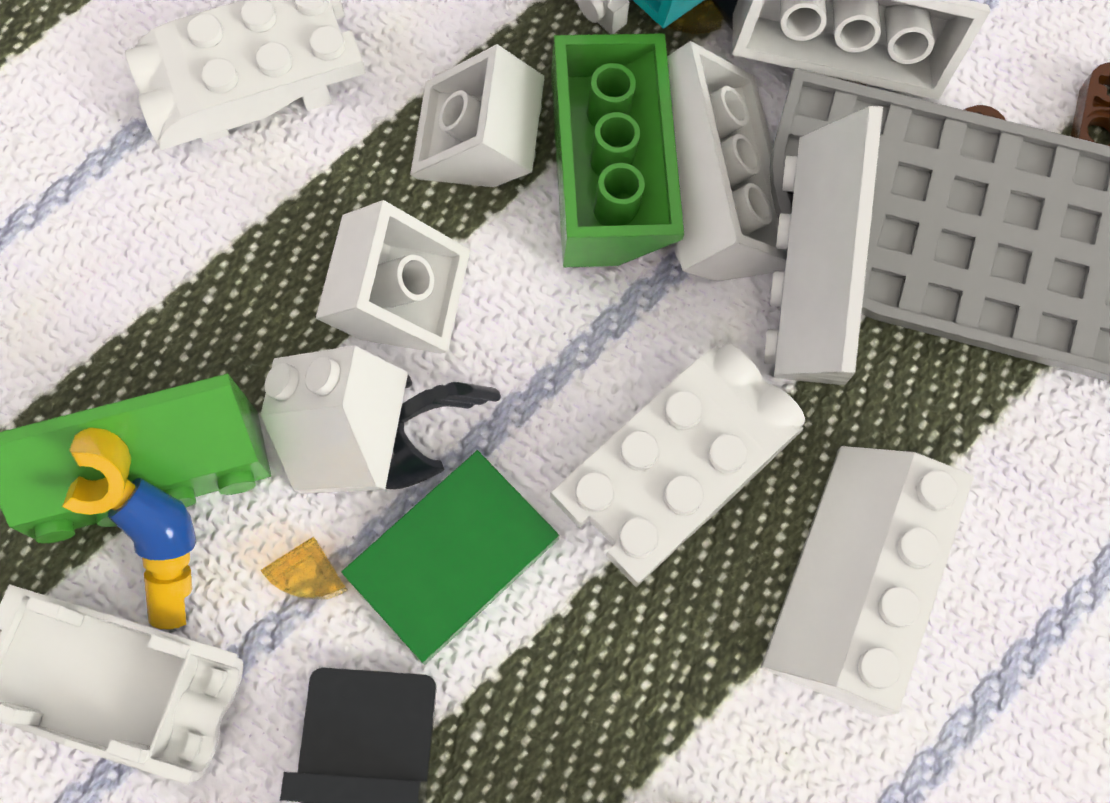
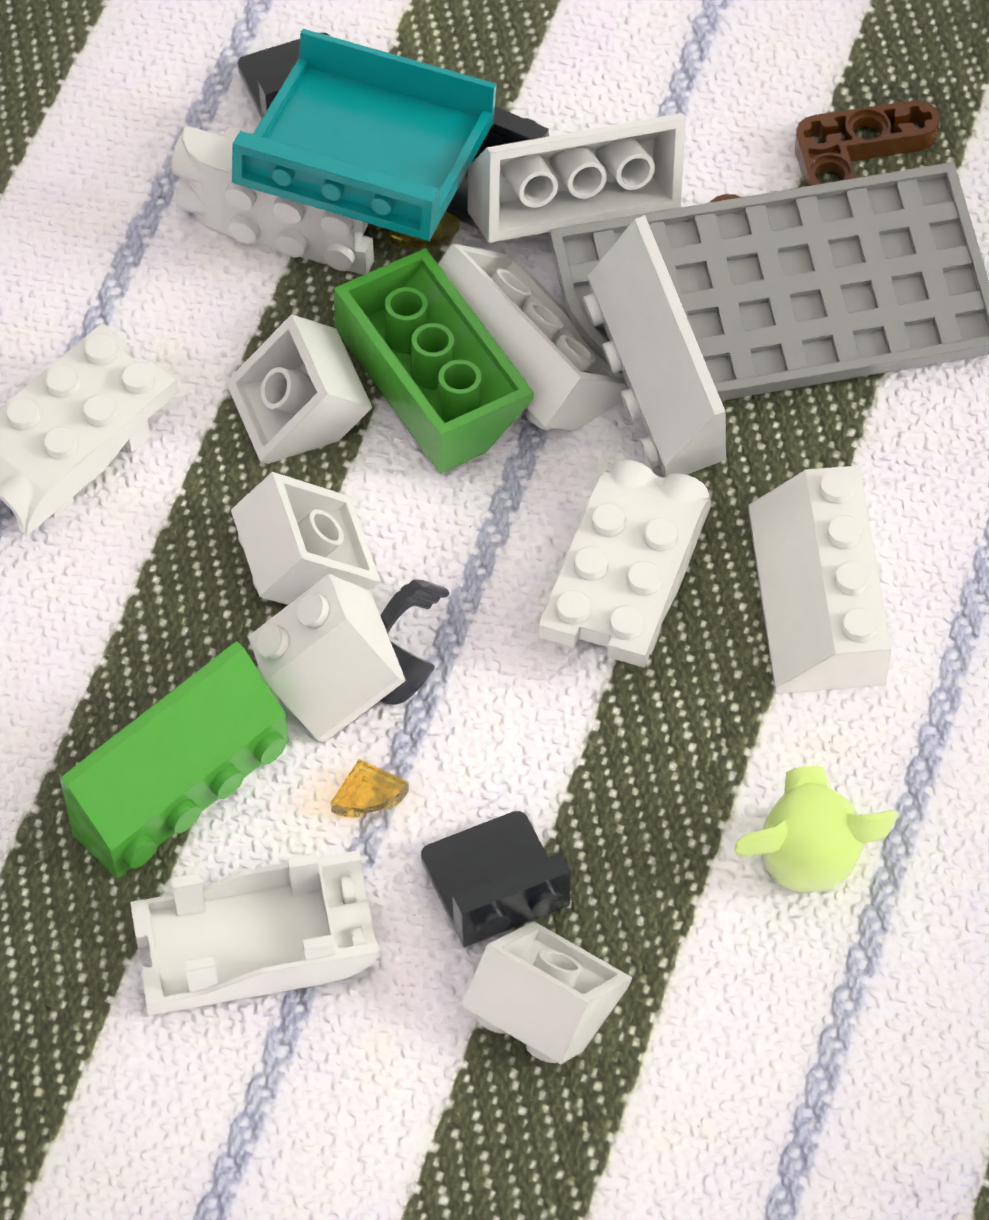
camera: 25 degrees left, 15 degrees down
(147, 515) = (229, 787): yellow piece -> none
(450, 556) = (479, 725): green tile -> none

